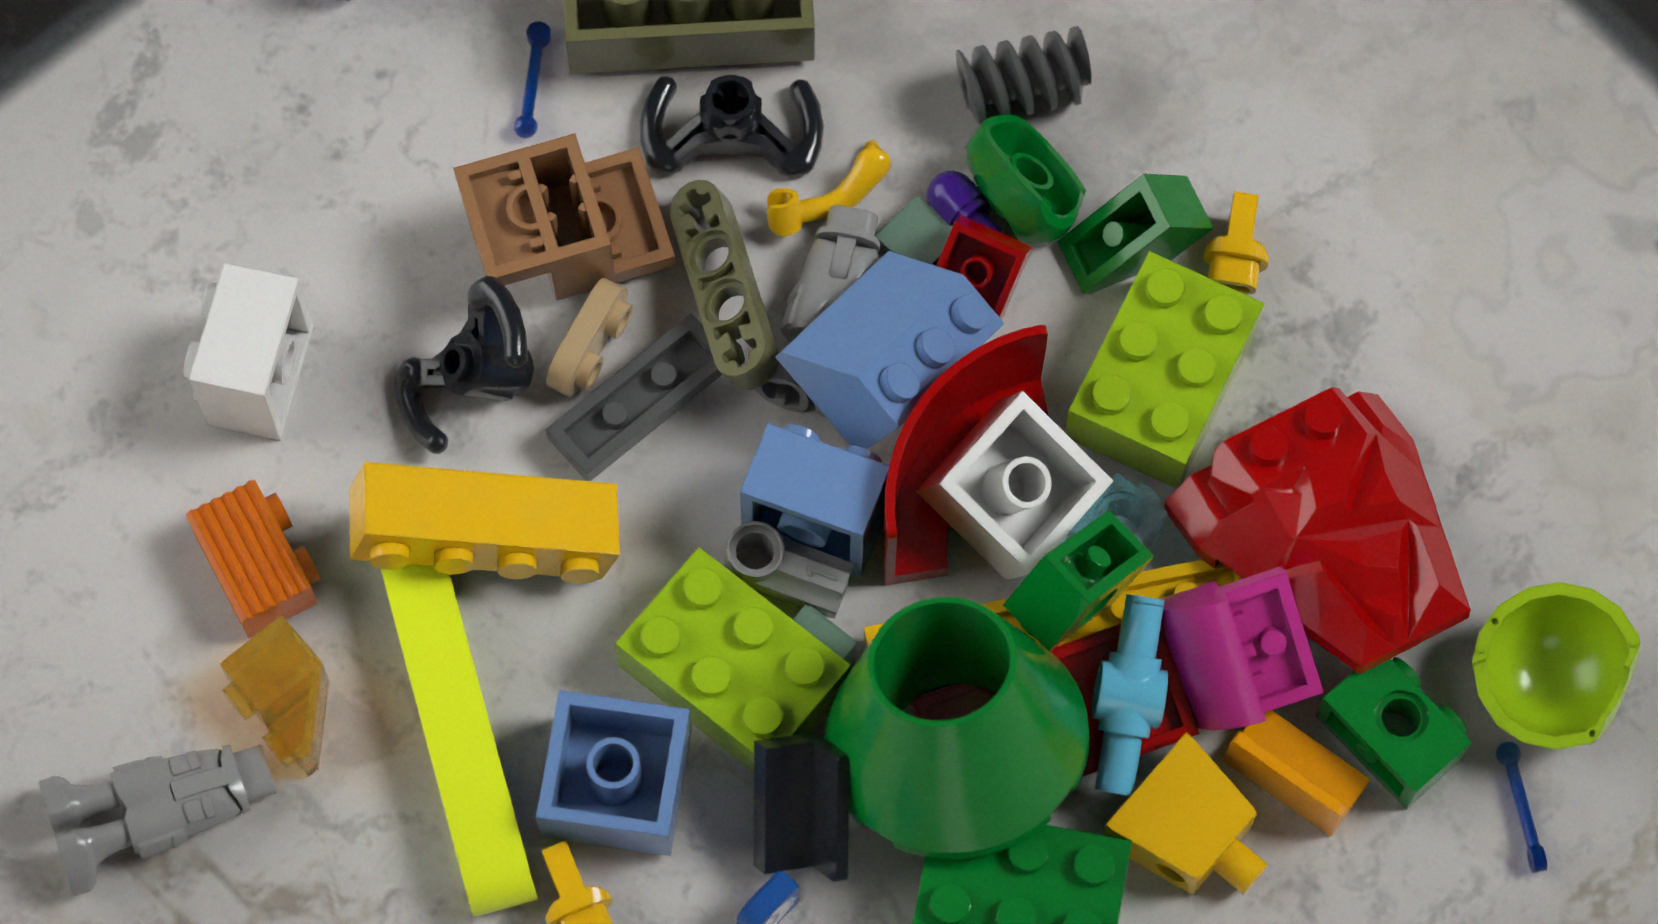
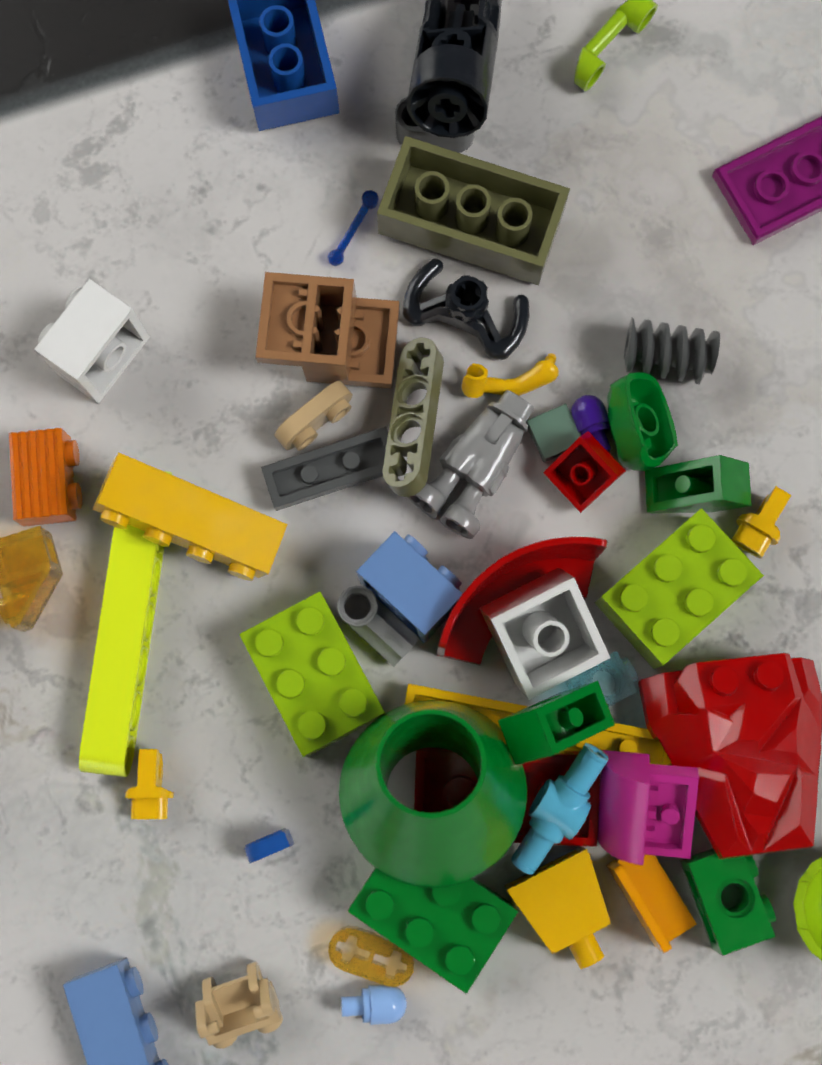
camera: 25 degrees right, 10 degrees up
(480, 361) = (232, 406): black piece -> none
(614, 773) = (204, 718): medium blue brick -> none
(801, 805) = (313, 792): black panel -> none
(827, 633) = (379, 681): sand green tile -> none
(887, 344) = (500, 504): medium blue slope -> none
(1509, 755) = (785, 1018): clear blue hinge -> none

